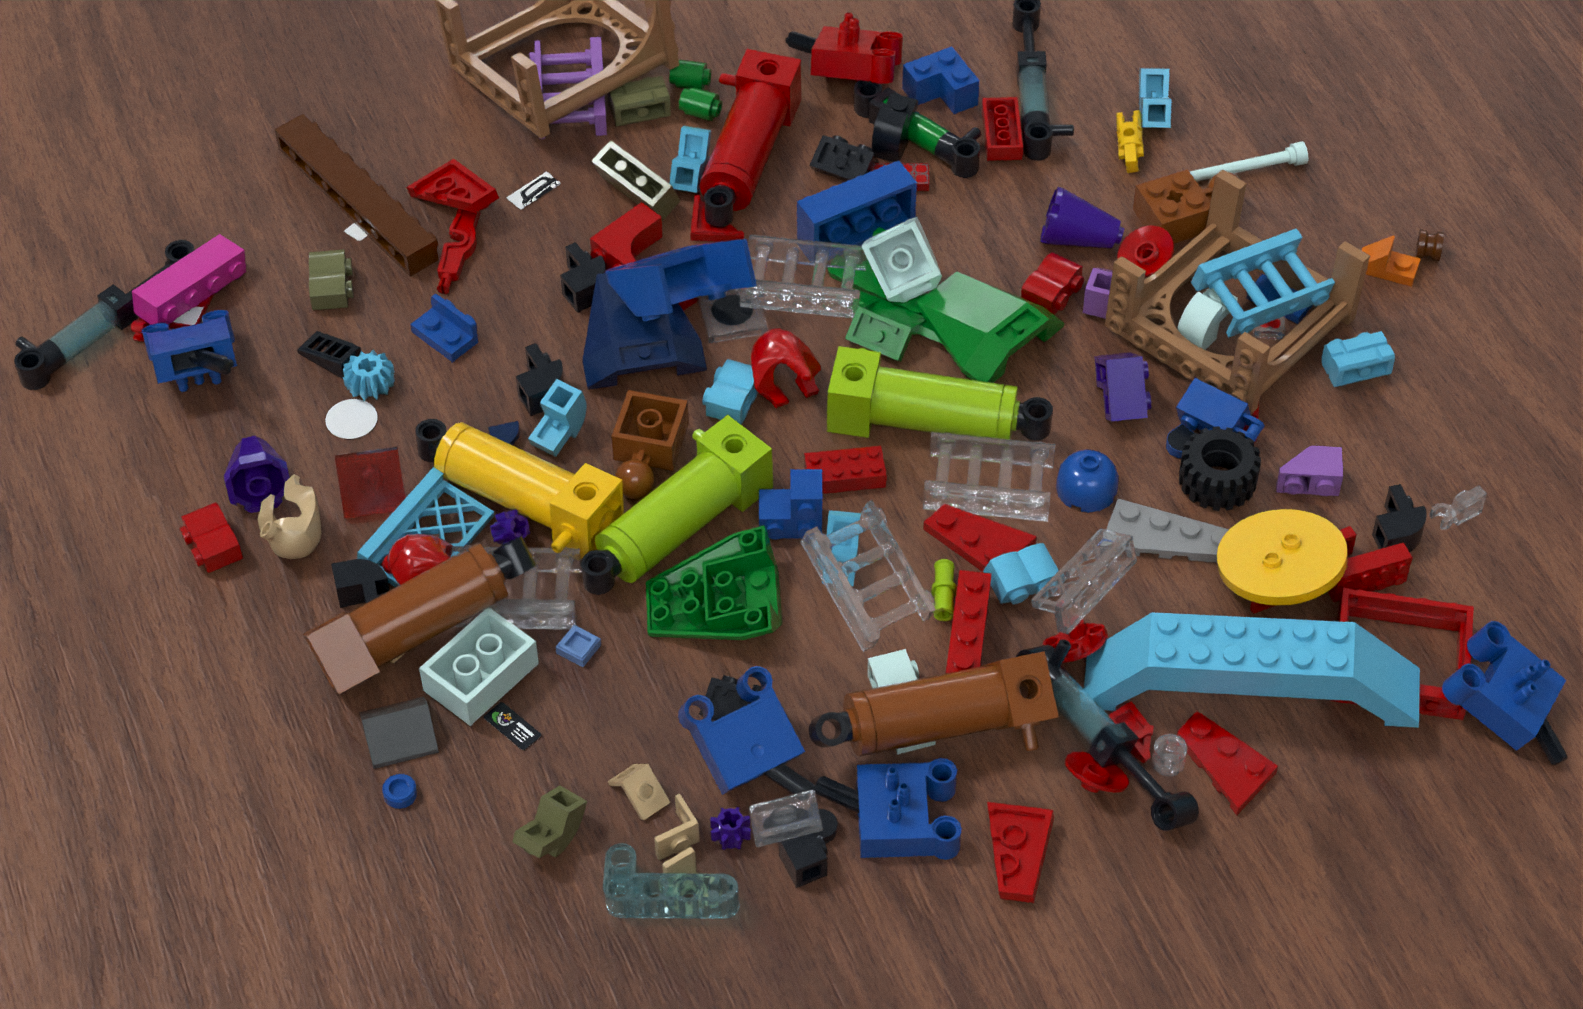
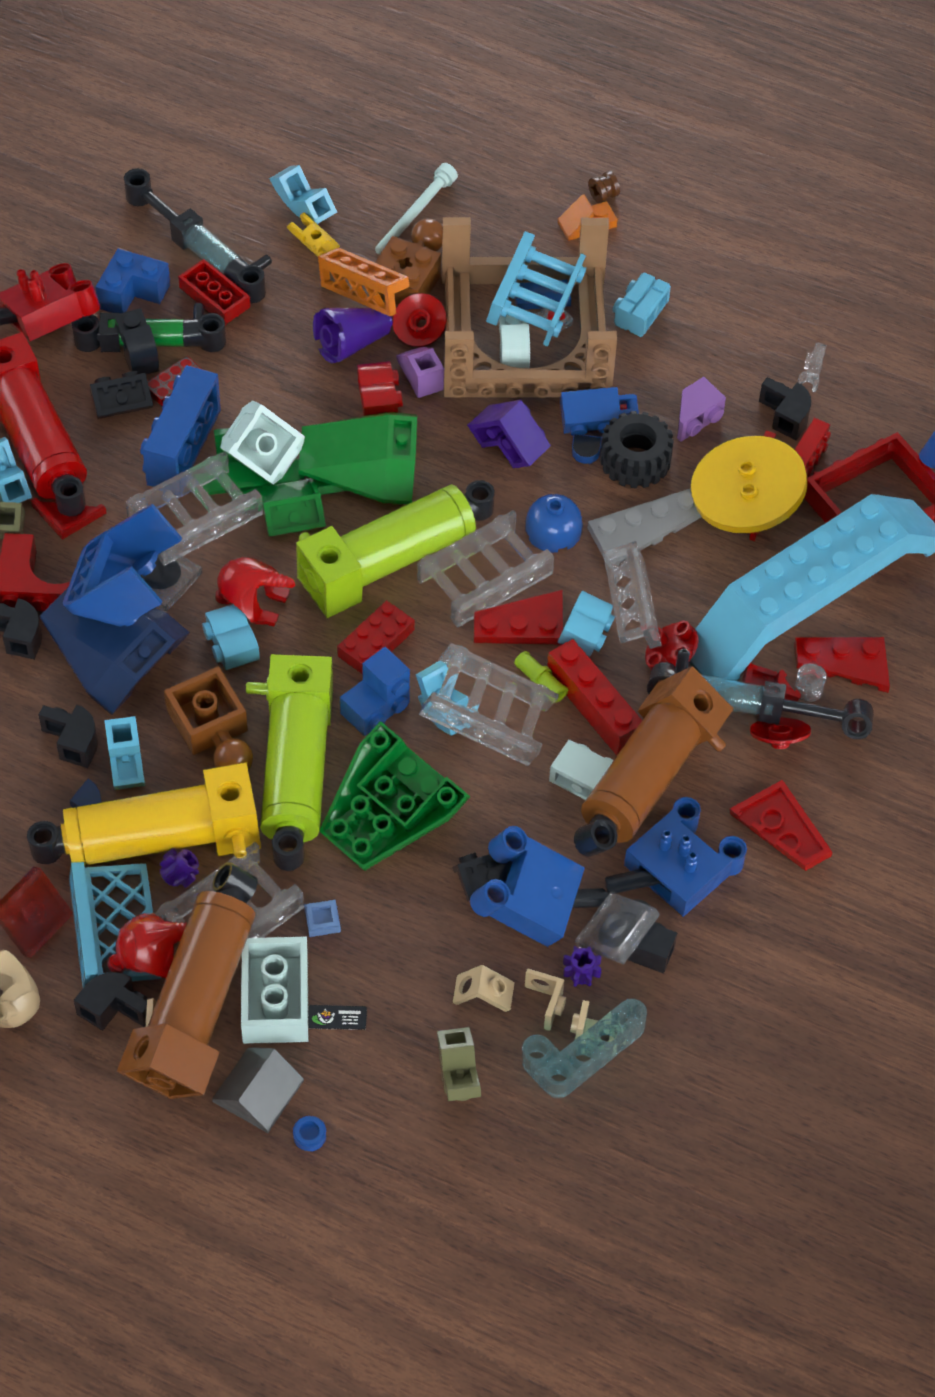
camera: 45 degrees left, 5 degrees up
(1122, 185) = (361, 272): none -> orange fence

